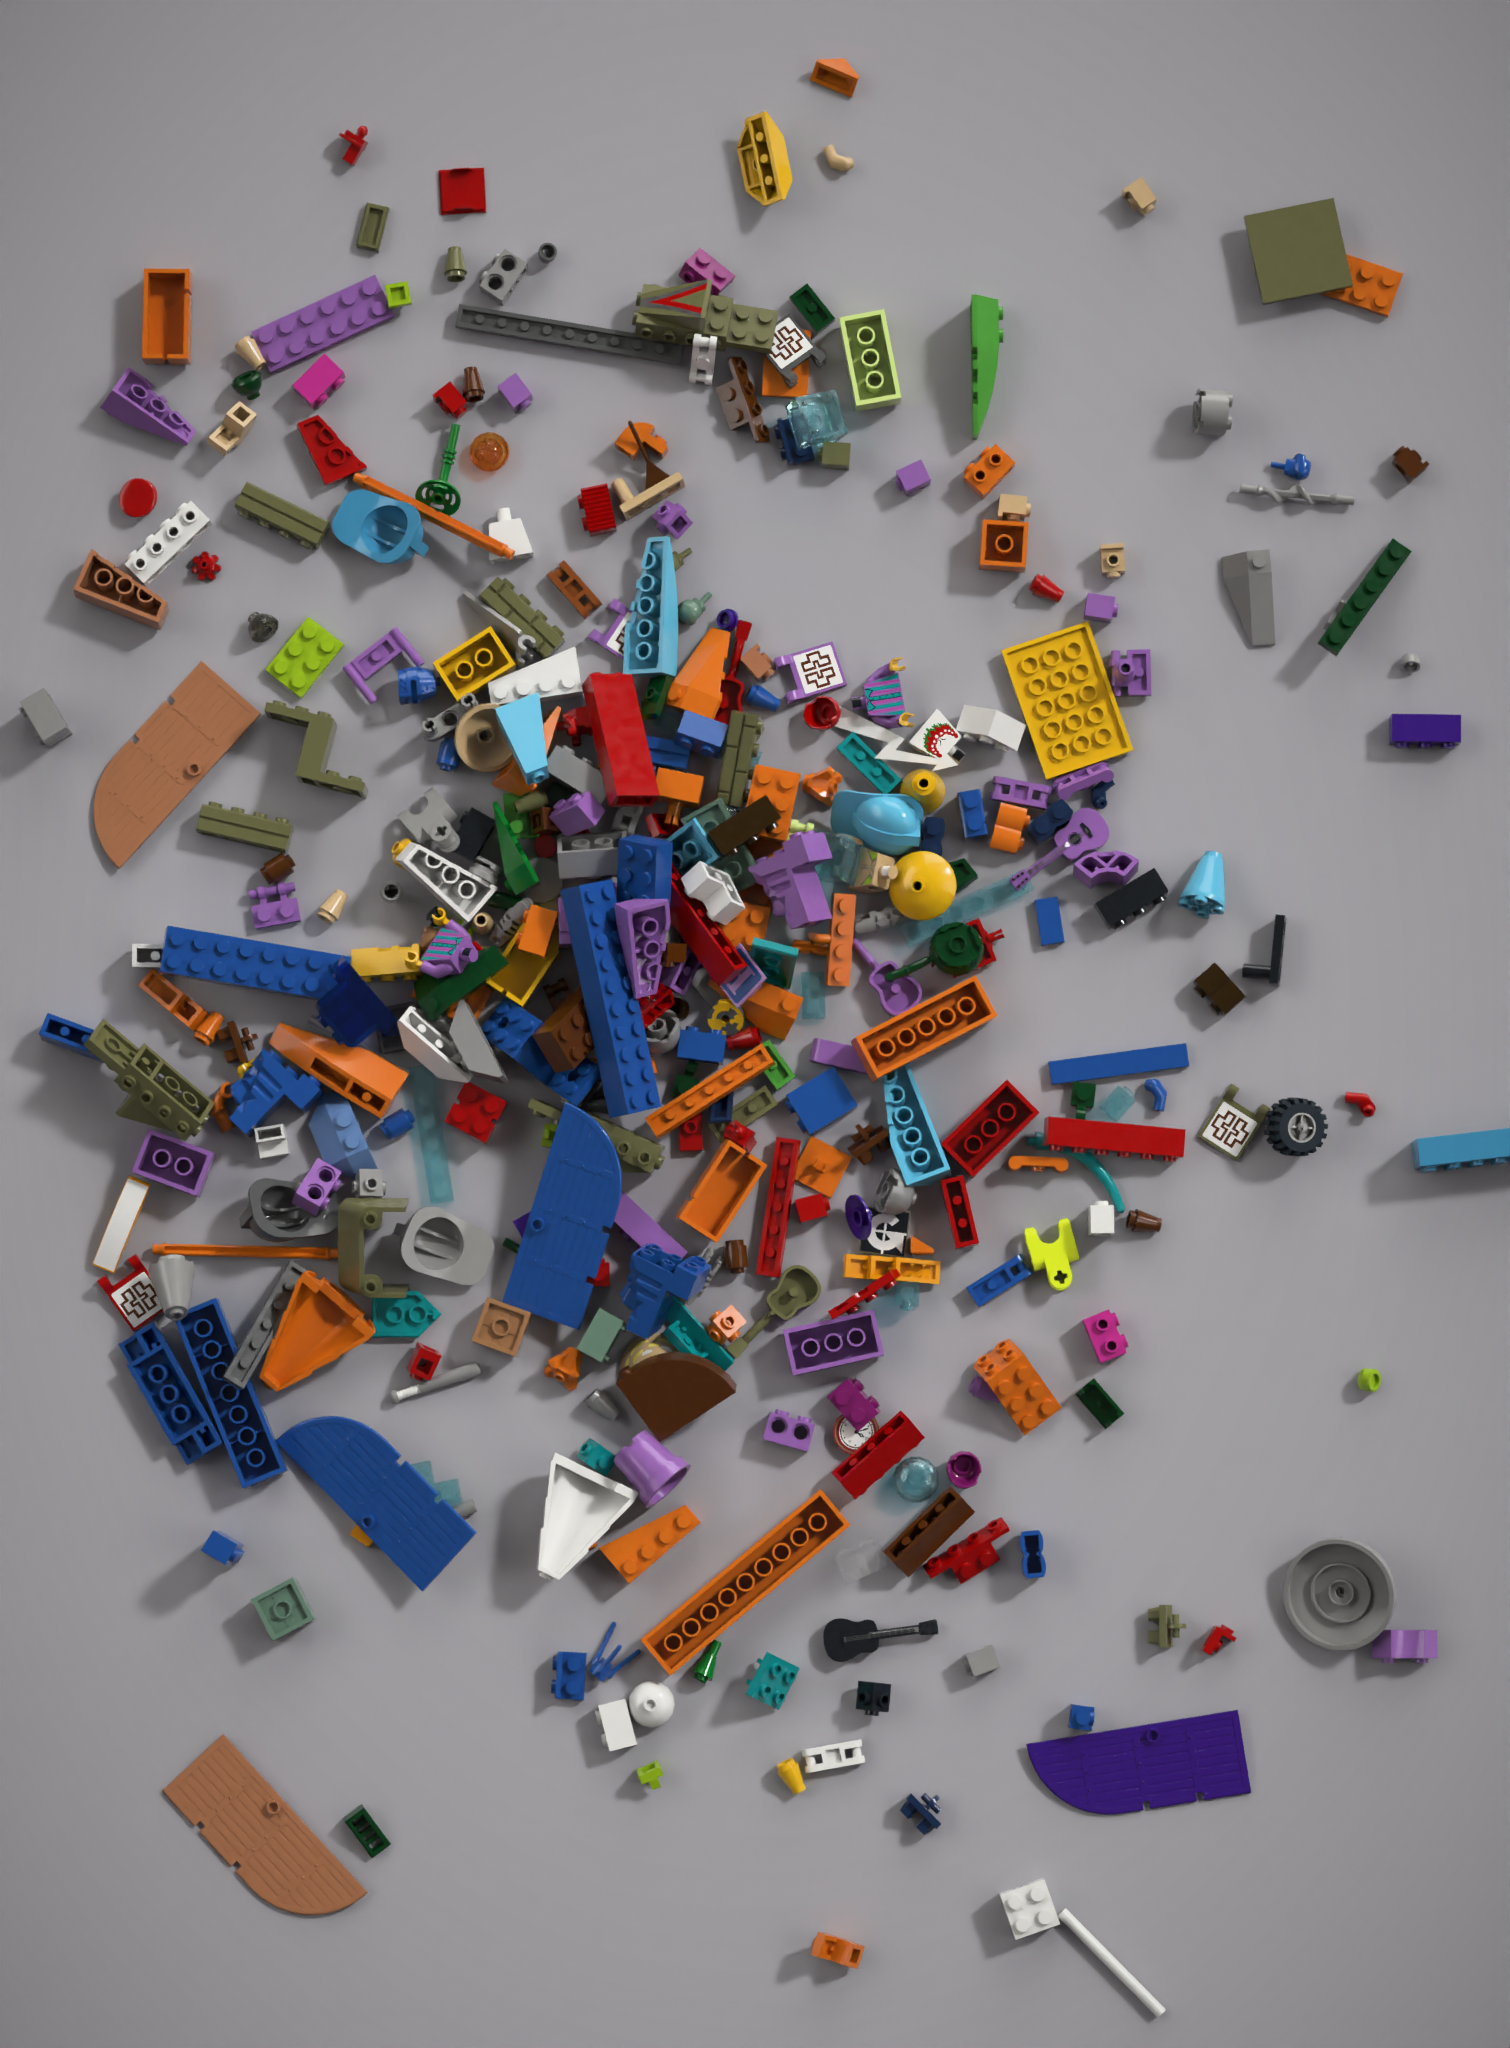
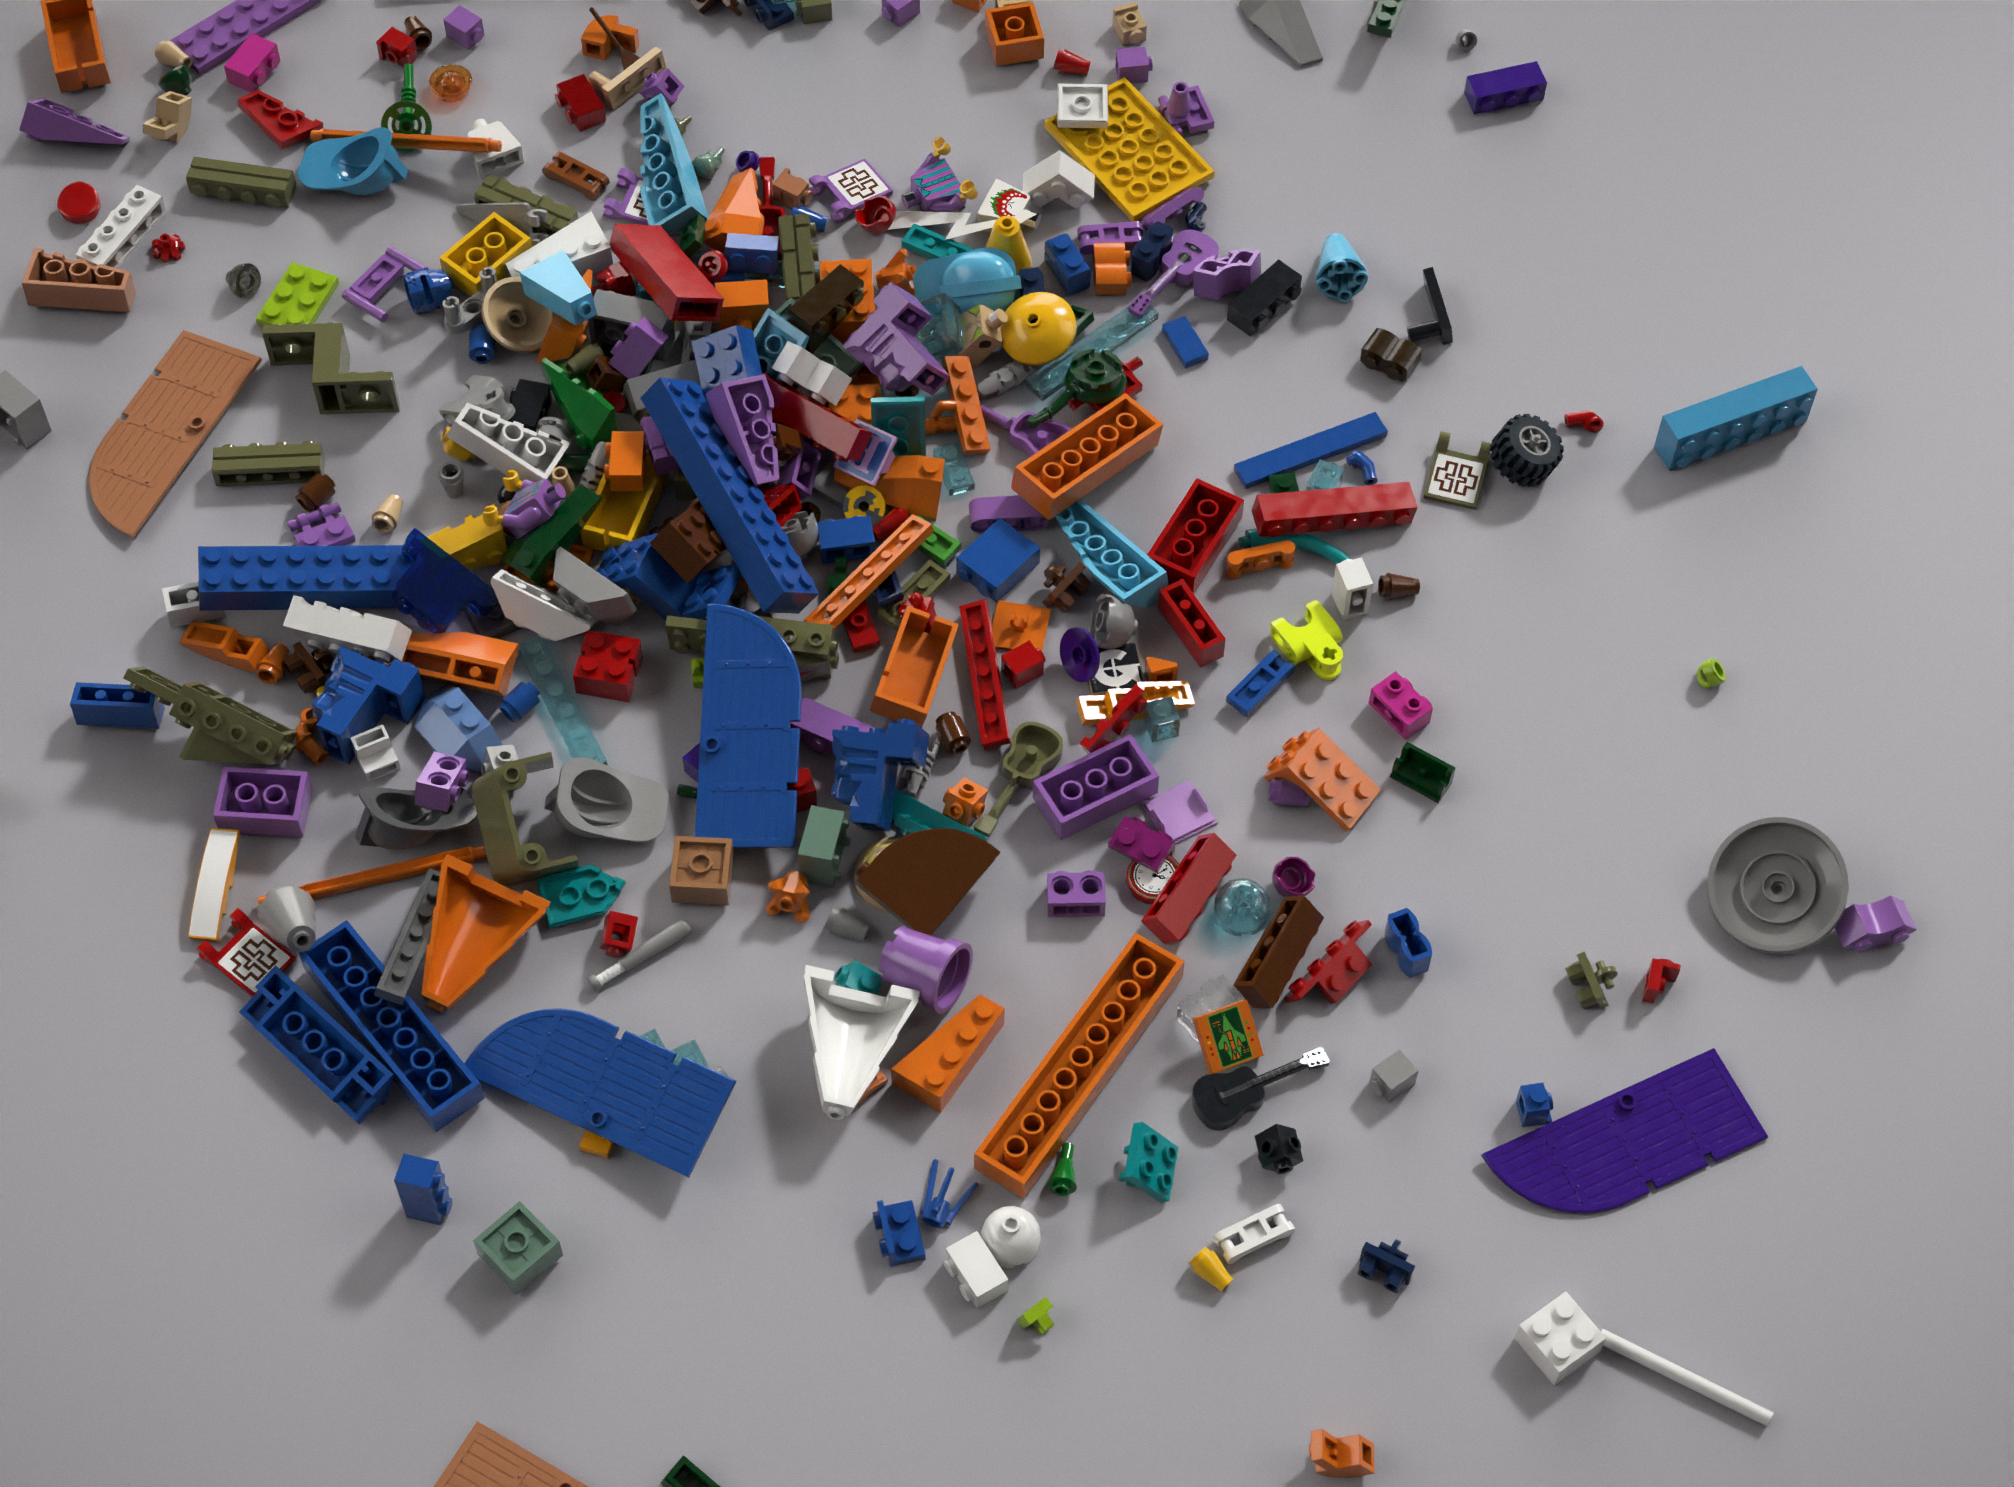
camera: 20 degrees left, 25 degrees down
(273, 1027) = (330, 628): none -> white wedge
(663, 740) = (713, 265): none -> red hat
(865, 1593) = (1227, 1036): none -> tile
(895, 1377) = (1179, 812): none -> lavender piece
(1037, 648) = (1082, 106): none -> white plate

